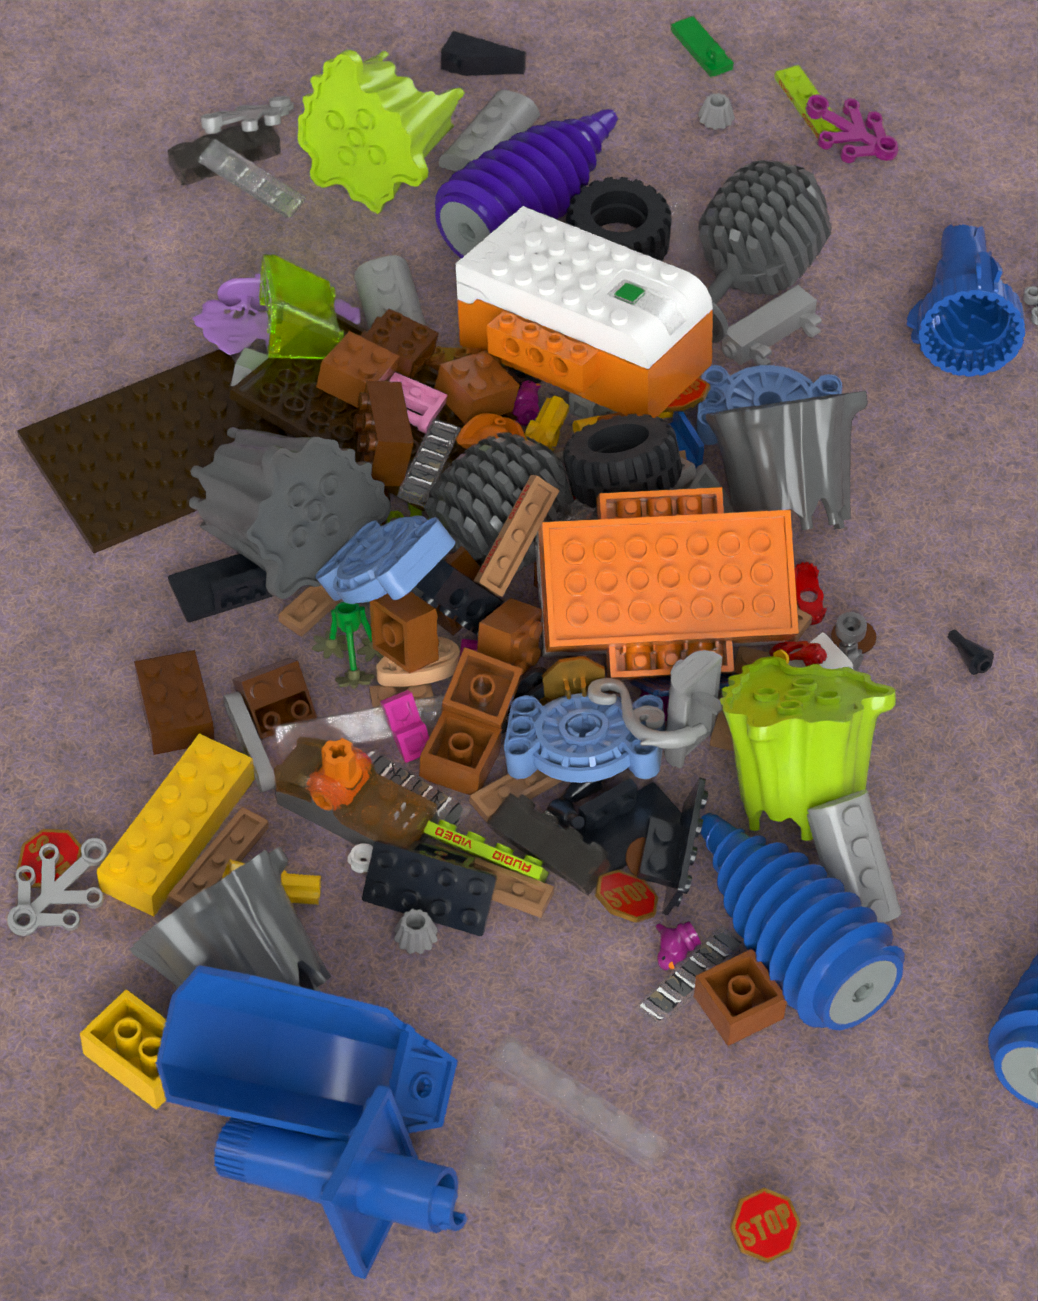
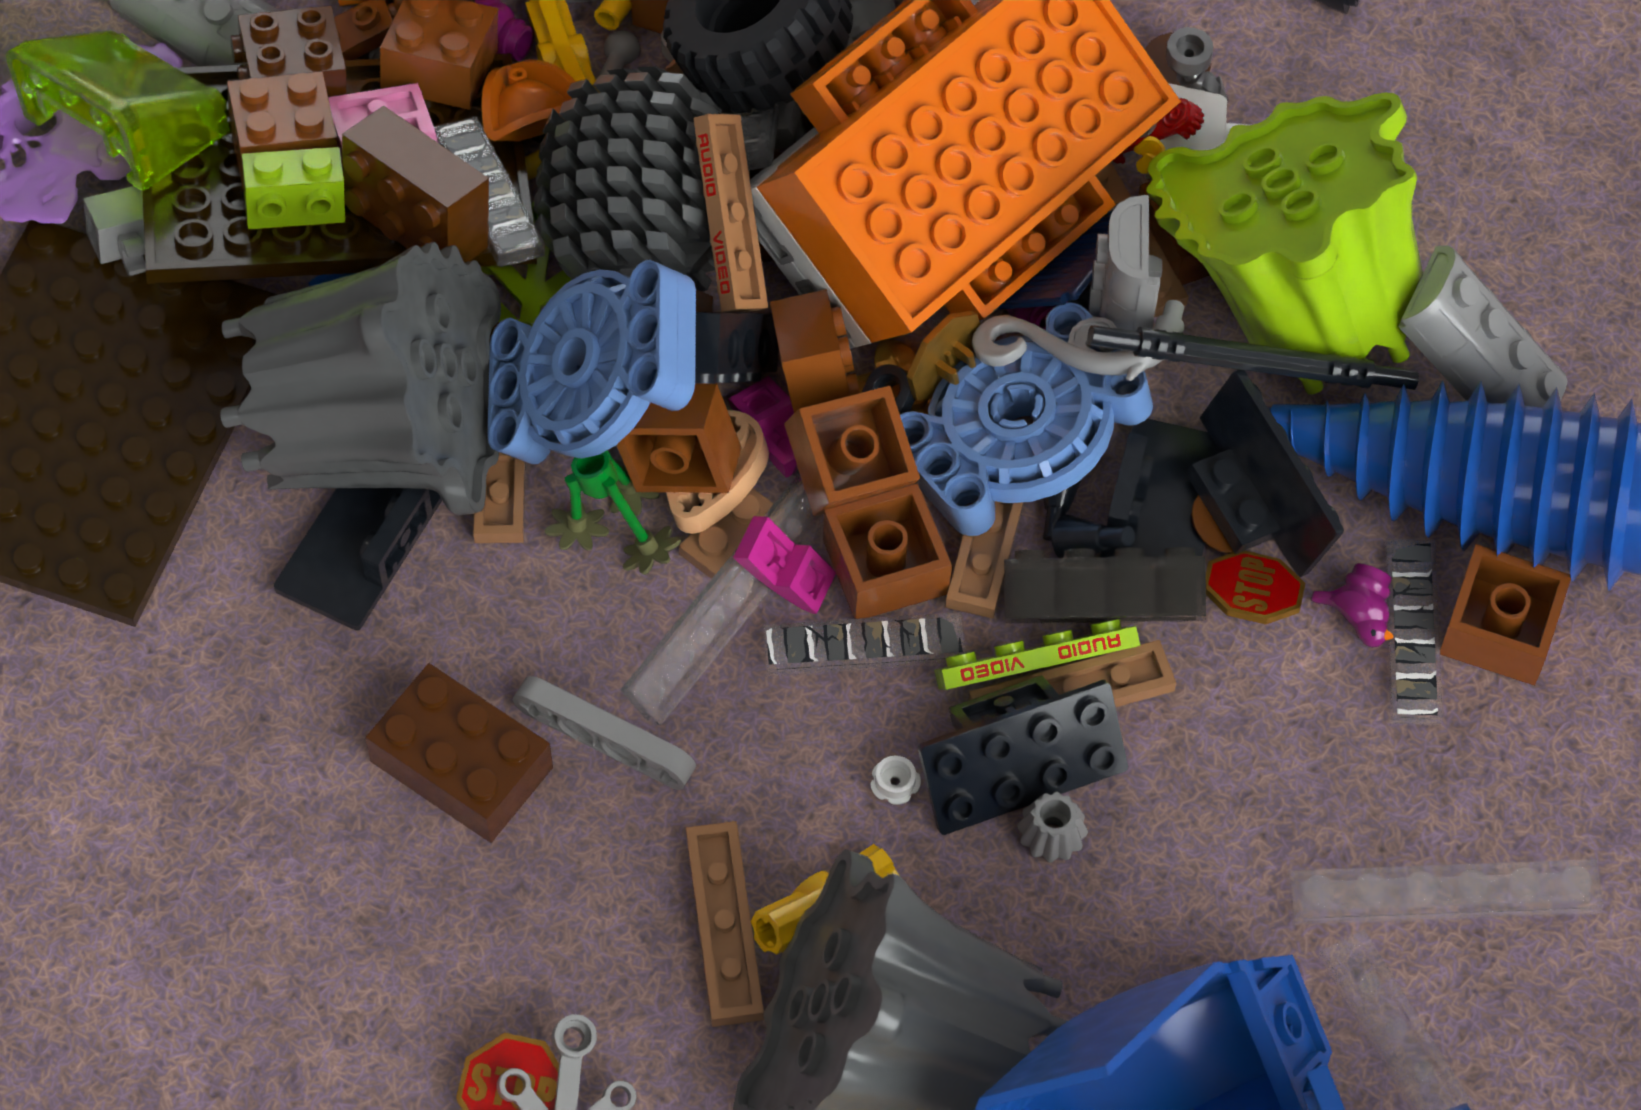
camera: 40 degrees left, 10 degrees up
(176, 825) = (628, 917): yellow brick -> none
(275, 696) = (579, 644): reddish brown slope -> none
(330, 396) = (299, 184): none -> lime brick
(345, 795) = (812, 711): clear orange piece -> none
(714, 776) = (1252, 357): none -> black axle

